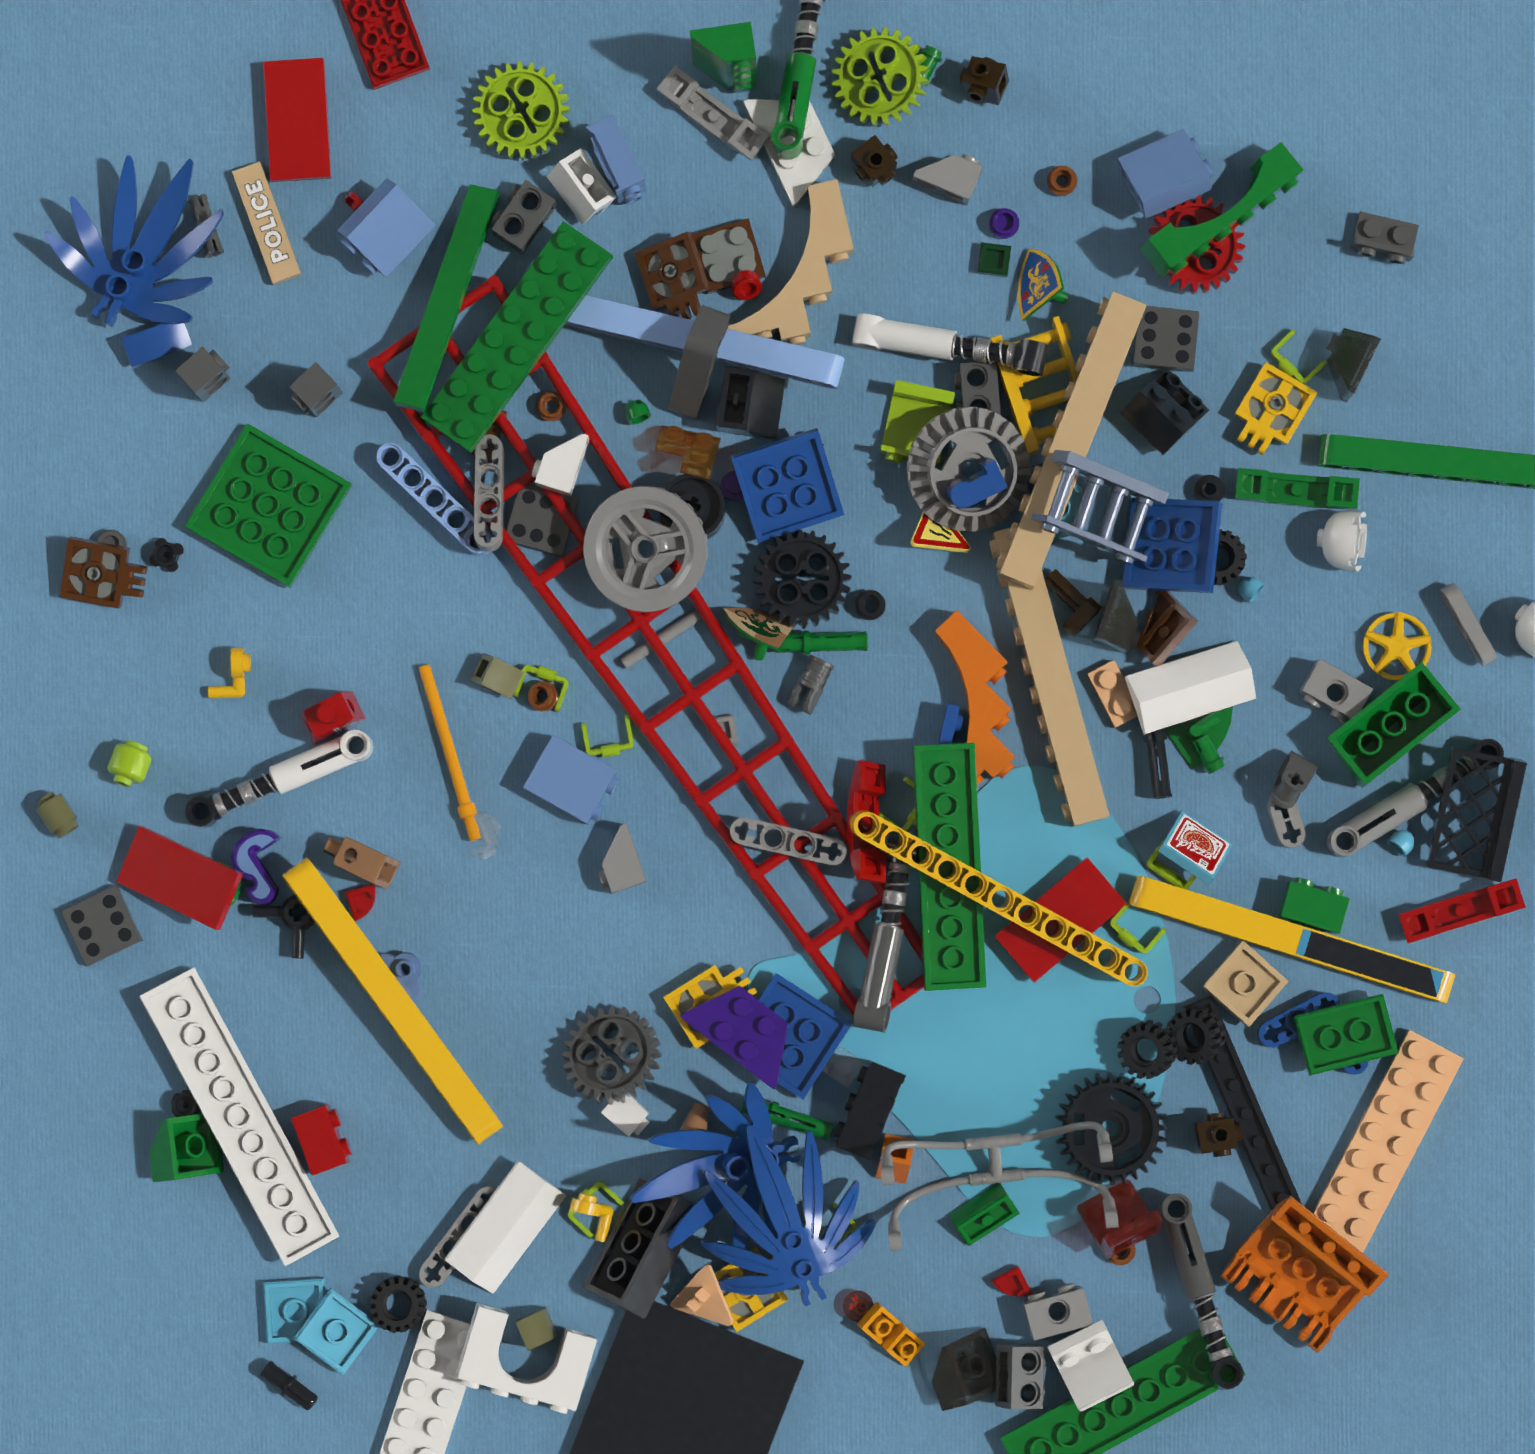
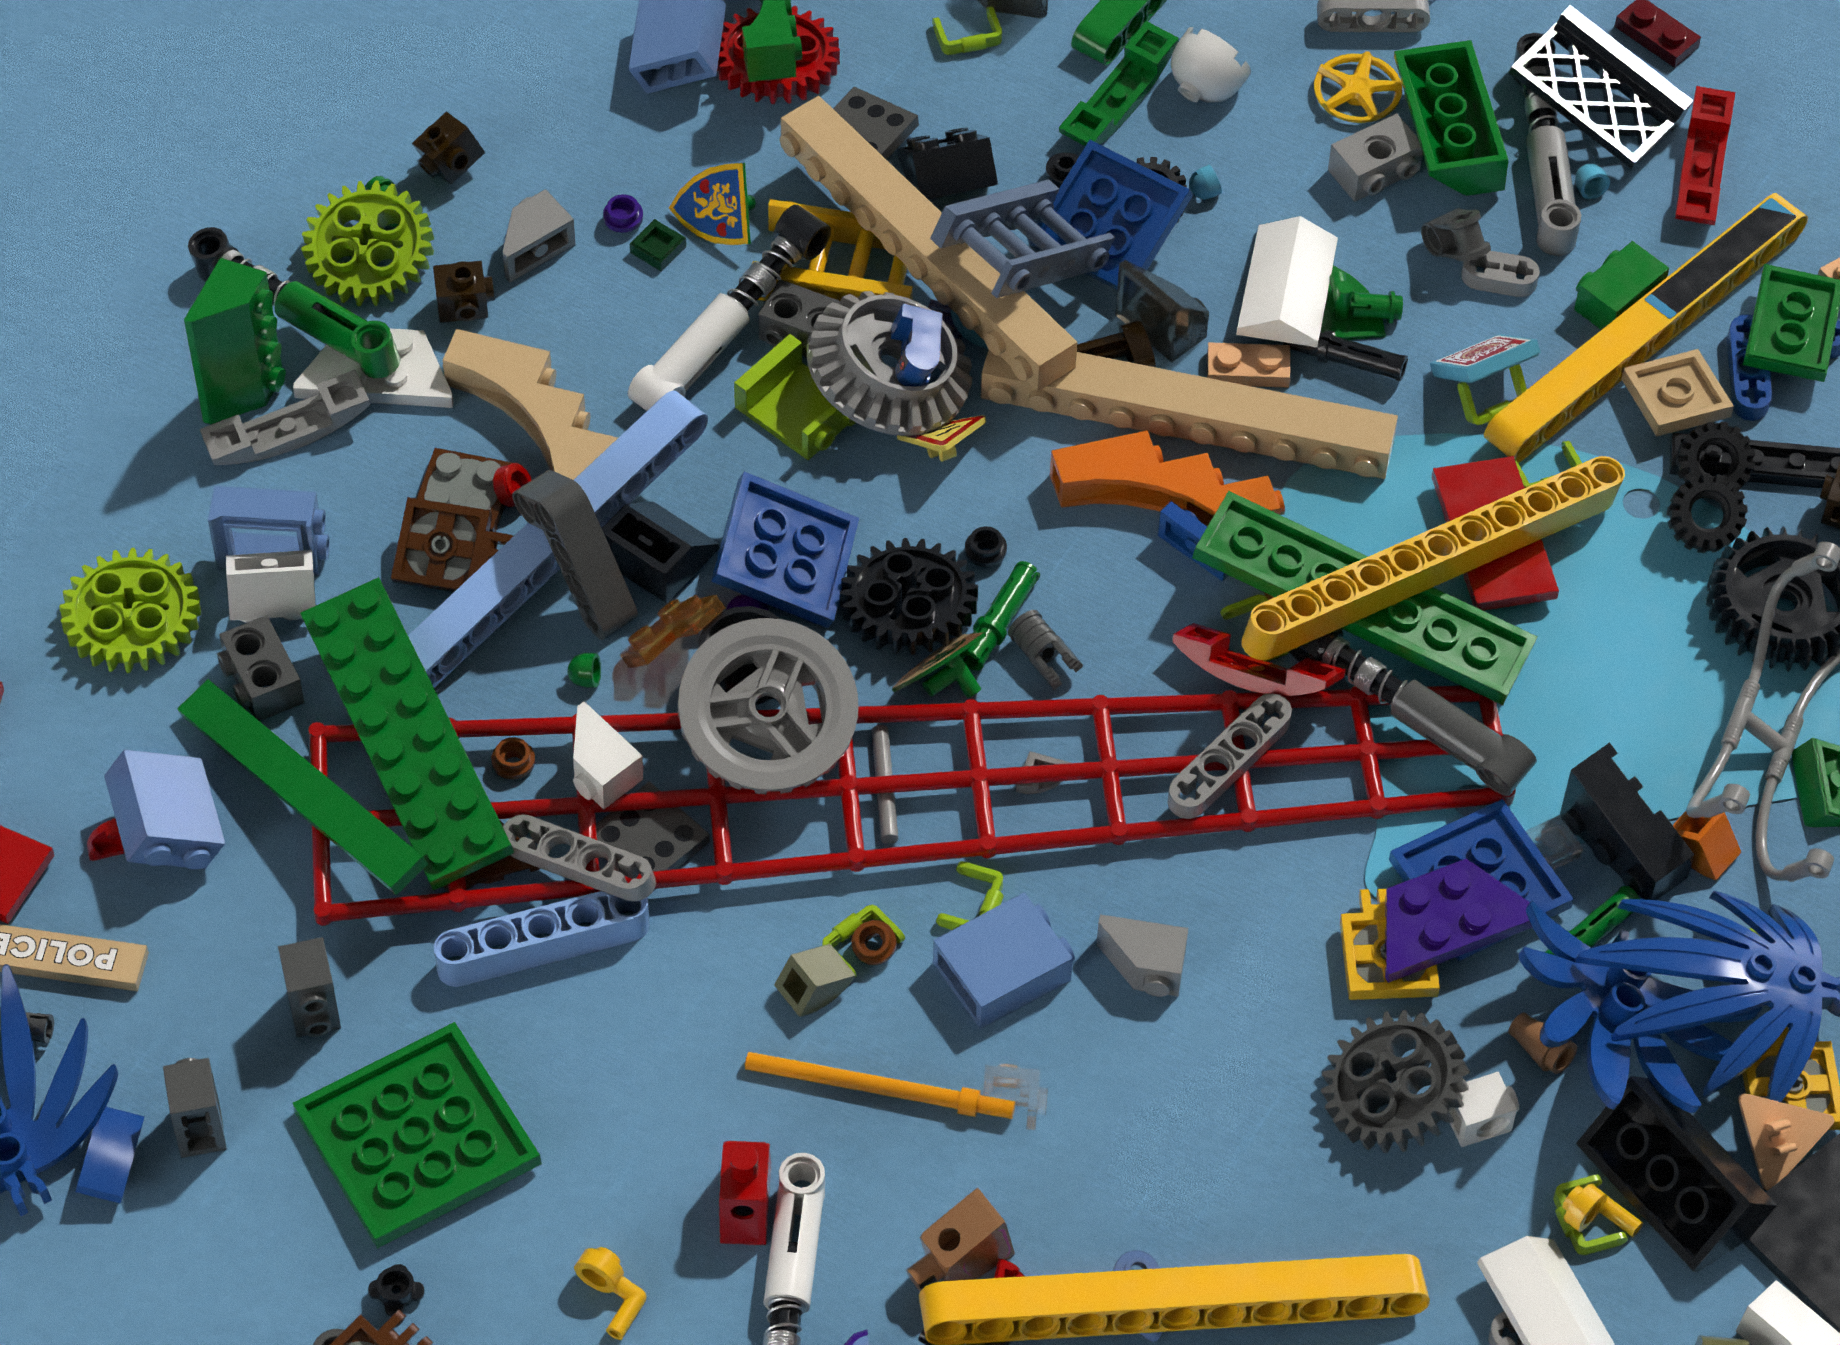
camera: 65 degrees left, 30 degrees down
(1061, 171) = (613, 140): dark orange plate -> none
(1164, 628) = (1201, 270): reddish brown wing -> none
(1273, 407) = (1010, 71): yellow piece -> none

